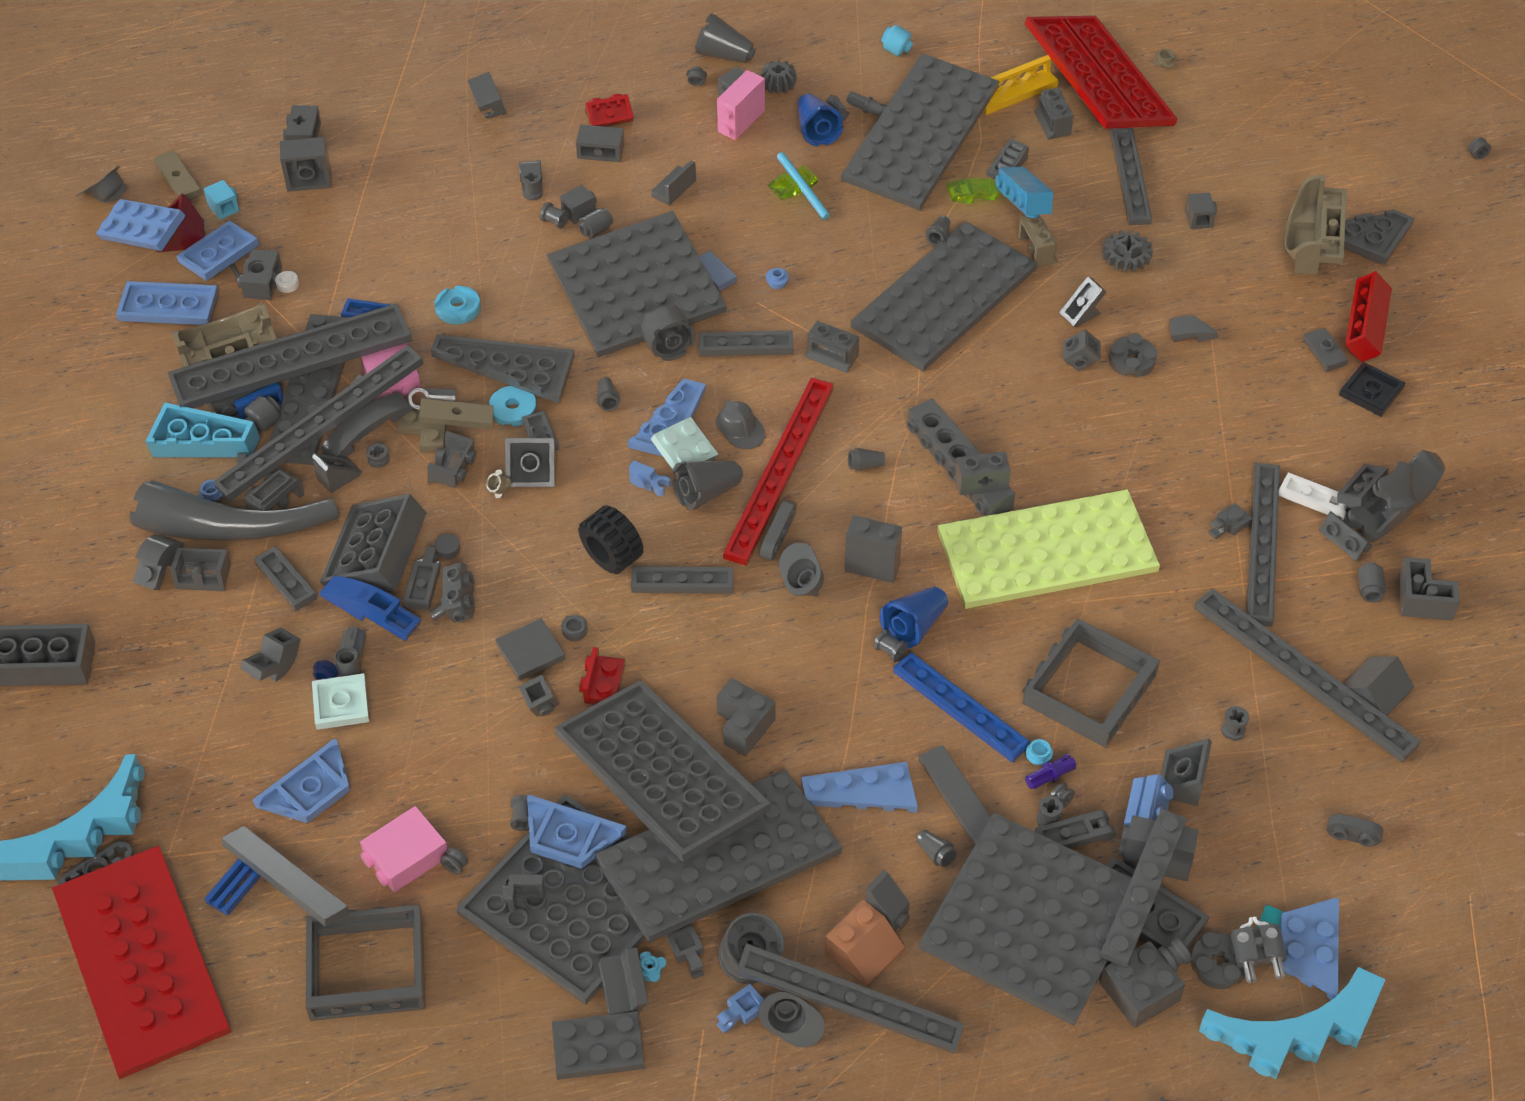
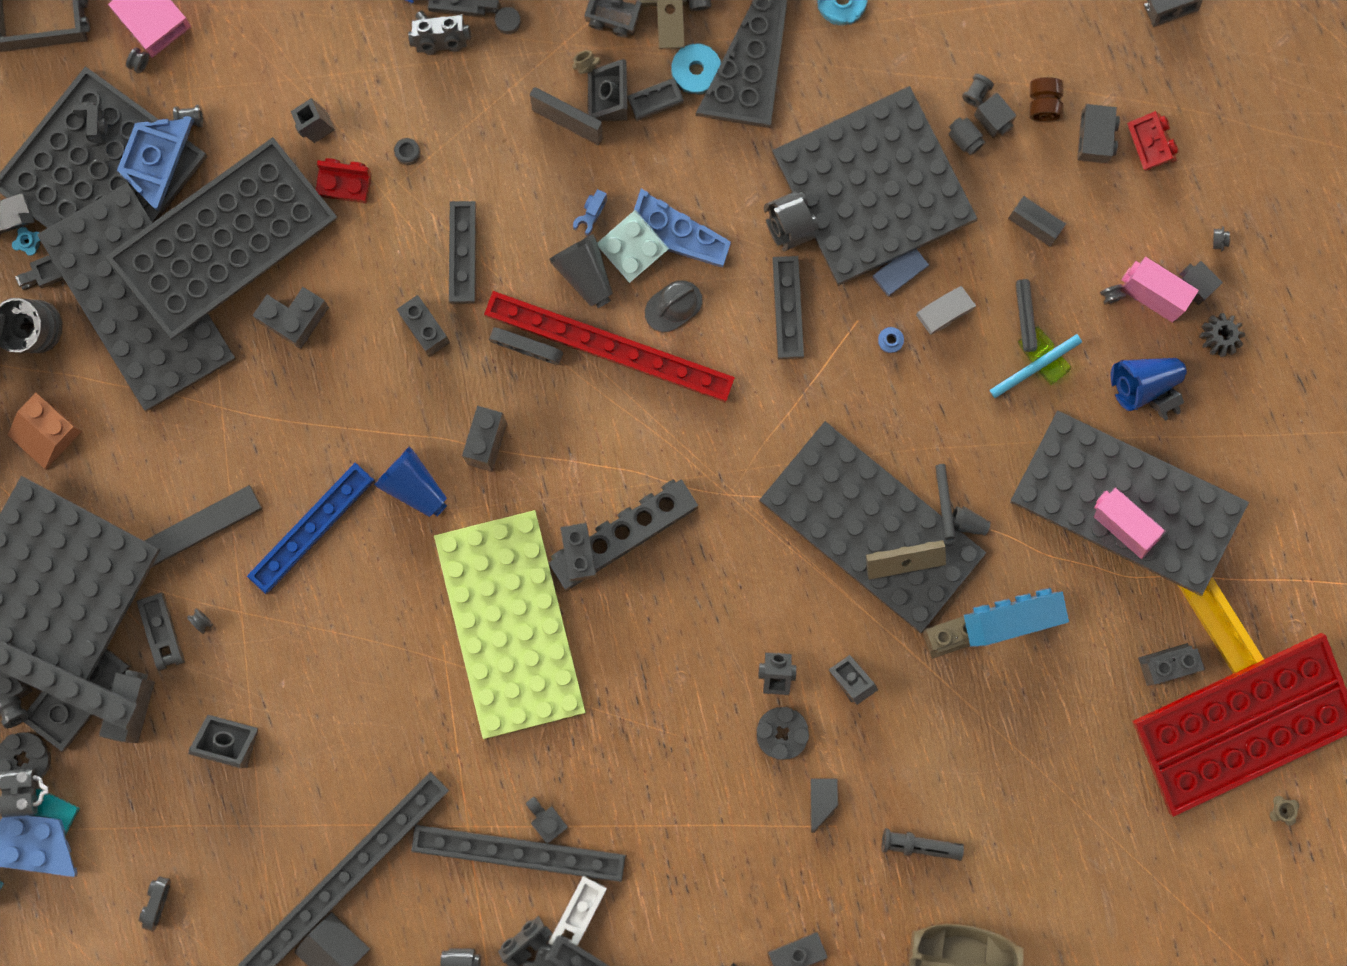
camera: 85 degrees right, 30 degrees up
(530, 649) = (376, 110): dark grey tile -> none
(531, 179) = (1040, 60): dark grey piece -> none
(554, 488) = (566, 116): none -> dark grey tile
(567, 170) = (1046, 98): none -> reddish brown wheel
(607, 395) = (711, 164): dark grey cone -> none
(611, 539) = (495, 175): black tyre -> none
(723, 41) = (1276, 267): dark grey cone -> none
(741, 138) = (1113, 294): none -> dark grey bush
(752, 239) = (945, 310): none -> light grey slope
(757, 607) = (423, 325): none -> dark grey brick
(758, 189) = (1026, 315): none -> dark grey axle
(801, 570) = (464, 368): dark grey piece -> none
(832, 346) = (780, 399): dark grey window -> none
(865, 459) = (623, 435): dark grey cone -> none
(867, 104) = (1180, 441): dark grey axle -> none
(874, 786) = (216, 435): medium blue wing -> none
(889, 900) = (74, 450): dark grey slope -> none
(890, 645) = (379, 458): dark grey bush -> none
(897, 40) = (1295, 477): medium azure head -> none
(923, 242) = (945, 502): none -> dark grey bar
(937, 849) = (143, 499): dark grey cone -> none
(944, 111) = (1127, 522): none -> bright pink brick
(969, 189) = (1038, 562): clear neon green slope -> none
(976, 261) = (906, 559): none -> dark tan tile
(1013, 149) = (1093, 619): dark grey slope -> none
(1039, 752) = (253, 602): medium azure plate -> none
(1049, 810) = (179, 600): dark grey bush -> none
(1051, 771) = (228, 610): dark purple axle -> none
(1109, 646) = (270, 664): dark grey window -> none
(1127, 251) = (941, 725): dark grey gear -> none
(1131, 176) = (1069, 753): dark grey tile -> none
(1148, 797) = (180, 702): medium blue brick -> none
(1200, 210) = (1012, 830): dark grey brick -> none
(1220, 273) = (910, 844): none -> dark grey pin
(1233, 723) = (274, 793): dark grey bush -> none

